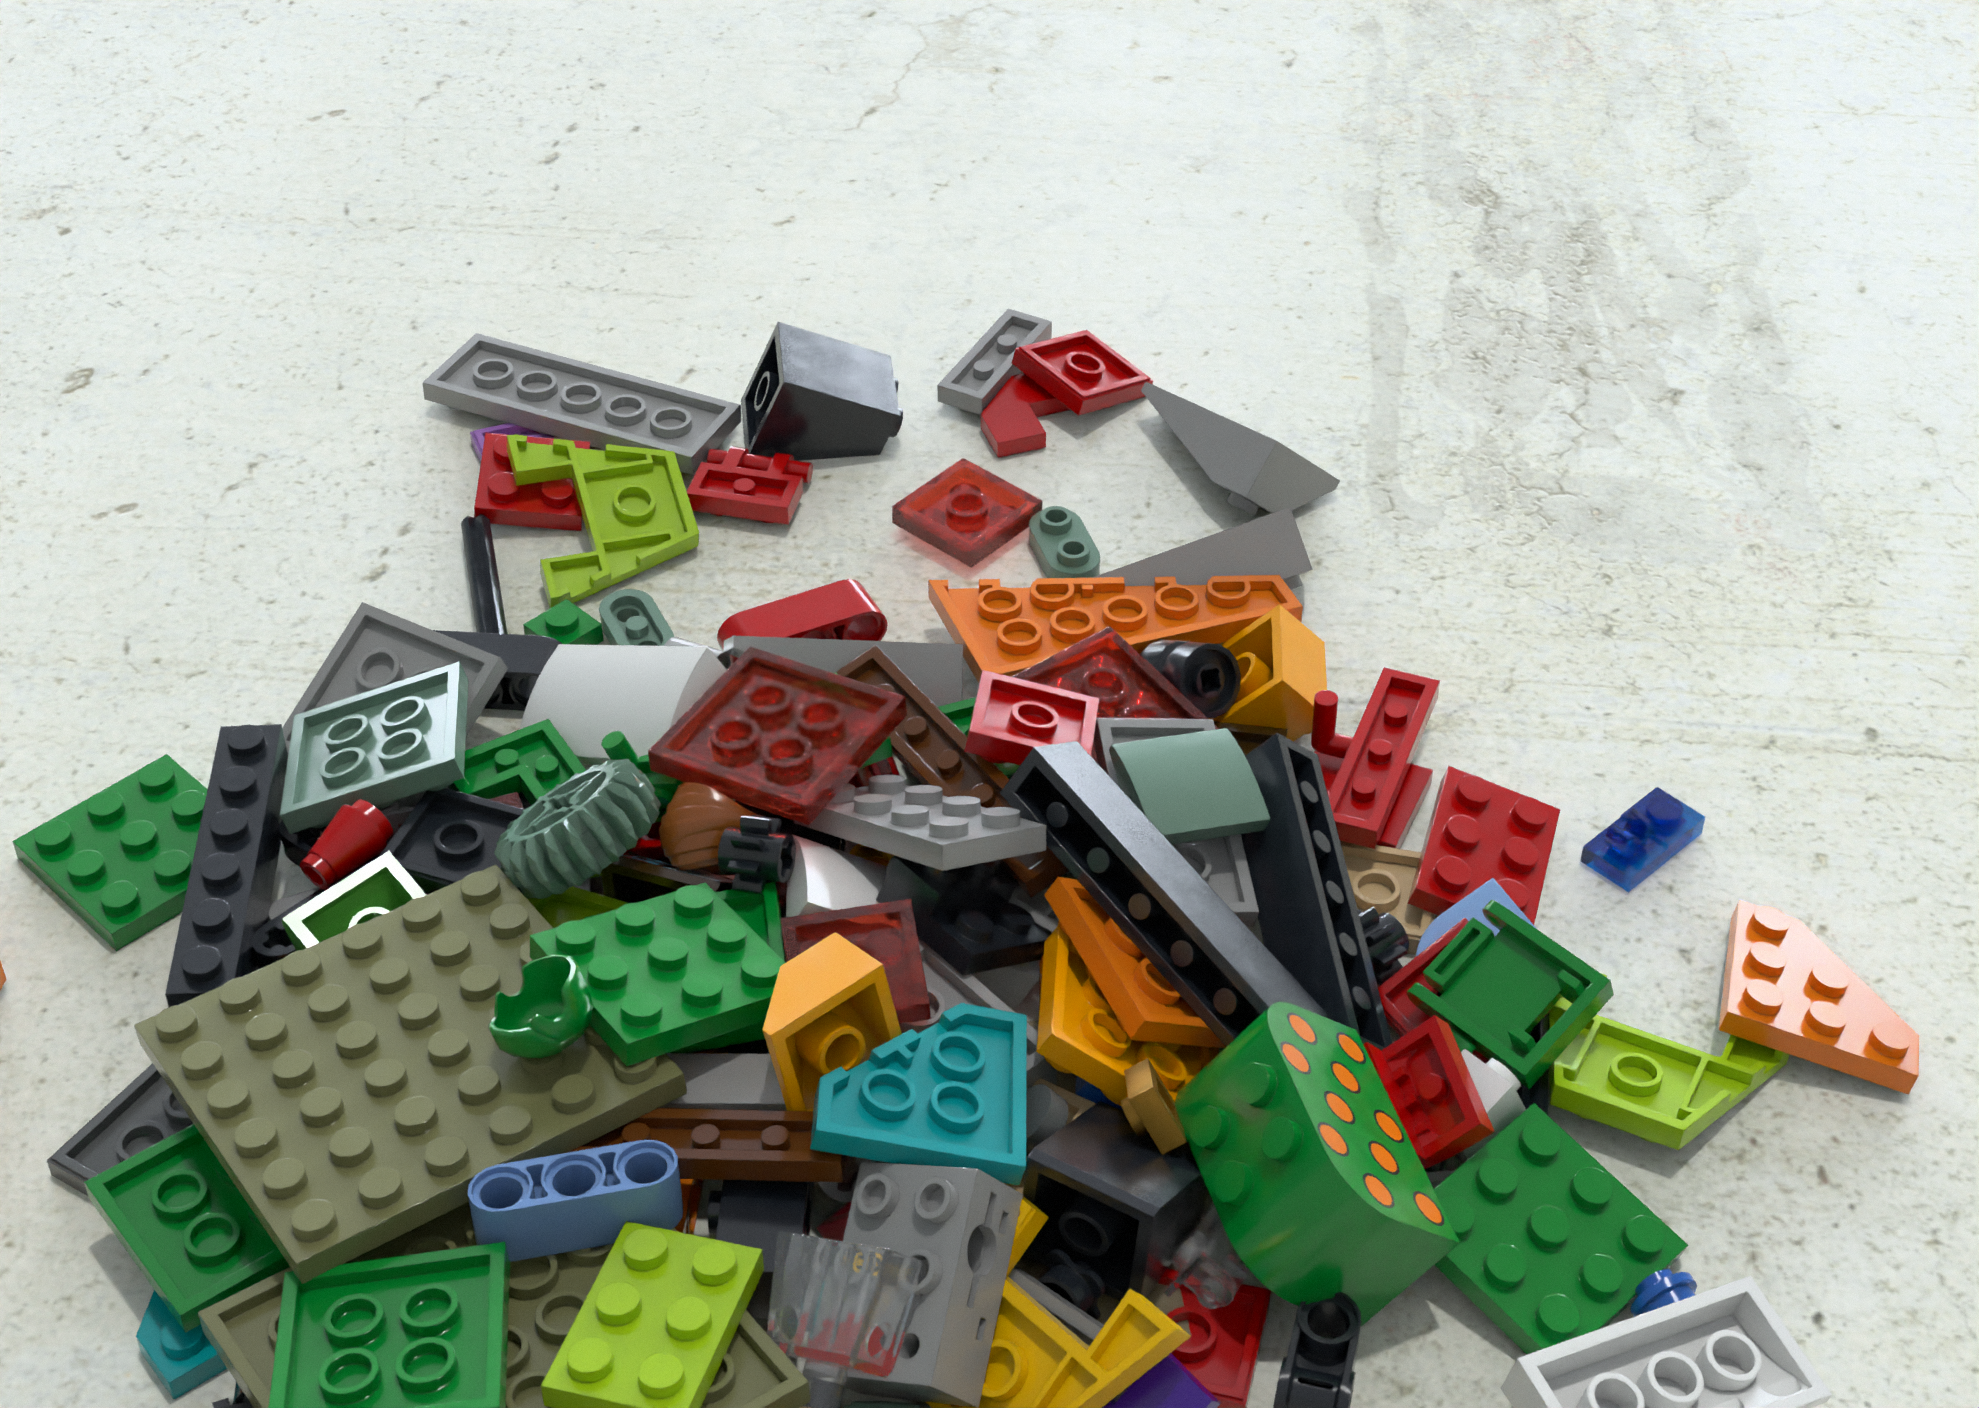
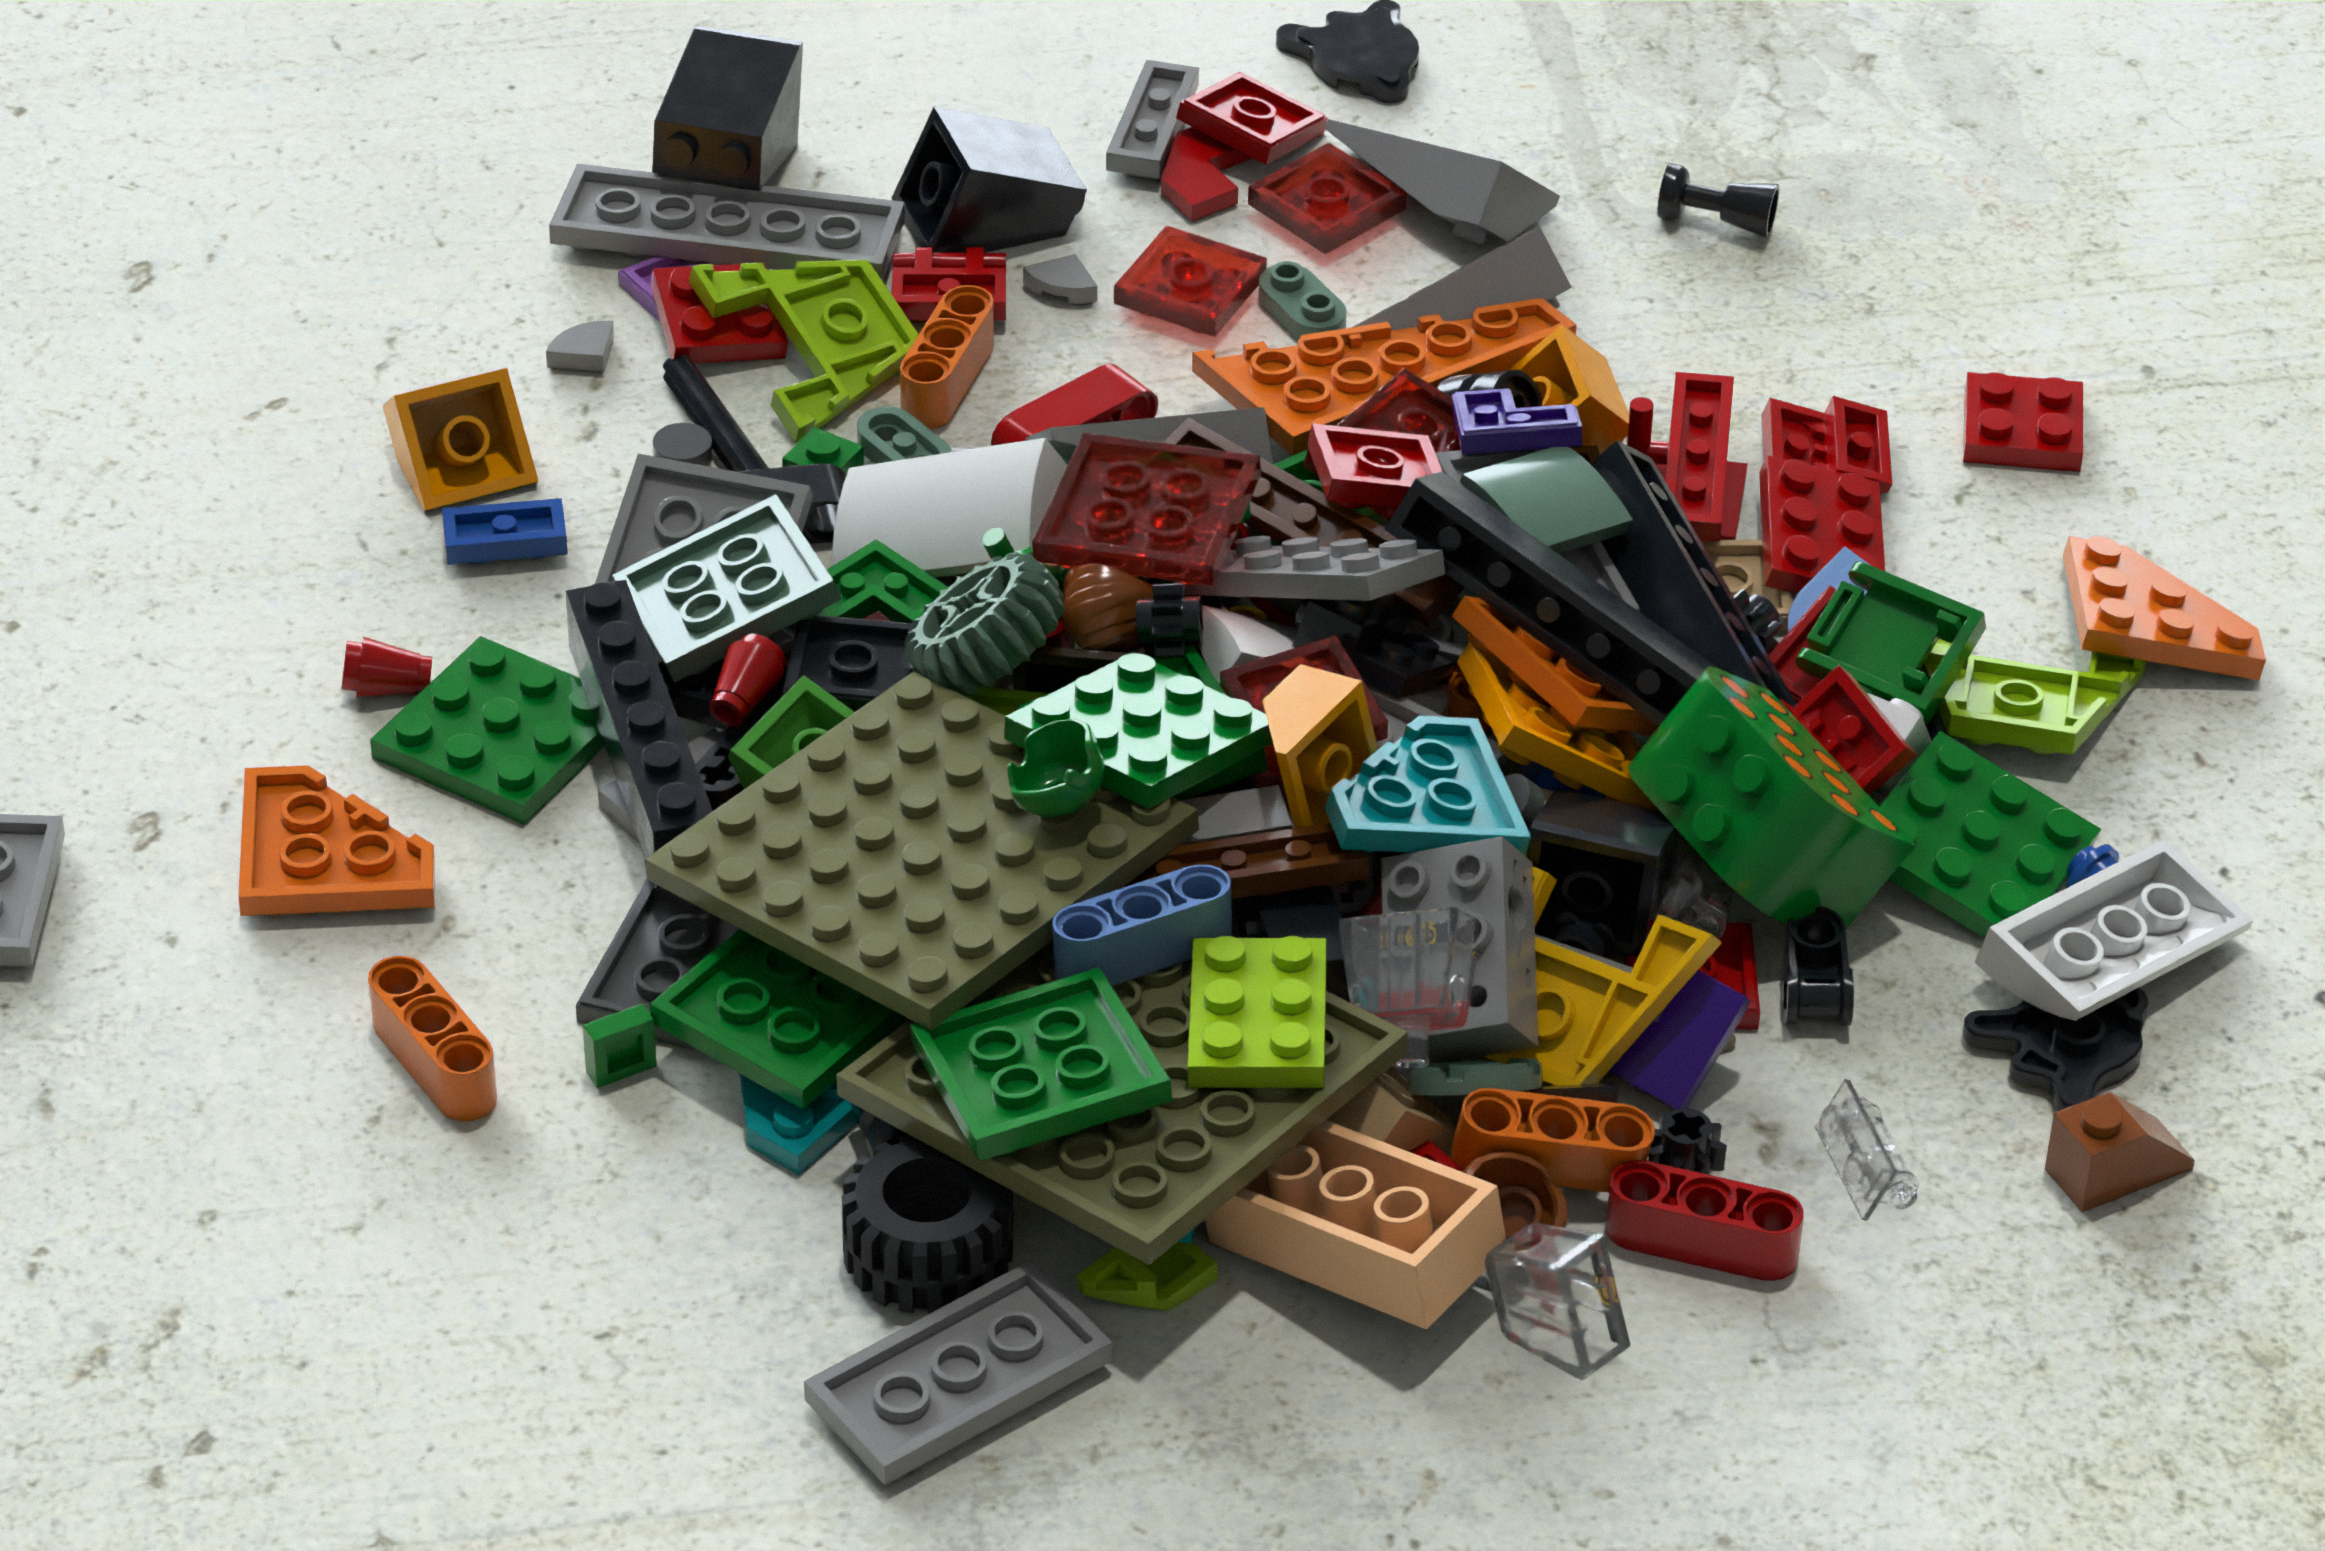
camera: 15 degrees left, 0 degrees up
(57, 1216) = (619, 1045): none -> green plate
(60, 772) = (384, 669): none -> red cone
(242, 656) = (504, 531): none -> blue plate
(246, 564) = (460, 439): none -> light orange slope
(405, 494) = (582, 347): none -> light grey tile
(444, 601) = (683, 443): none -> dark grey tile
(616, 303) = (730, 108): none -> black slope
(713, 551) = (947, 355): none -> orange beam
(854, 493) = (1061, 277): none -> light grey tile
(1123, 453) = (1327, 198): none -> clear red plate
(1151, 1107) = (1615, 779): pearl gold plate -> none
(1171, 696) = (1492, 423): none -> dark purple tile
(1207, 325) = (1358, 48): none -> black tile
(1507, 512) = (1740, 204): none -> black piece
(1533, 761) = (1841, 439): none -> red slope
(1643, 839) = (1962, 497): clear blue plate -> none
(1729, 768) = (2023, 421): none -> red plate

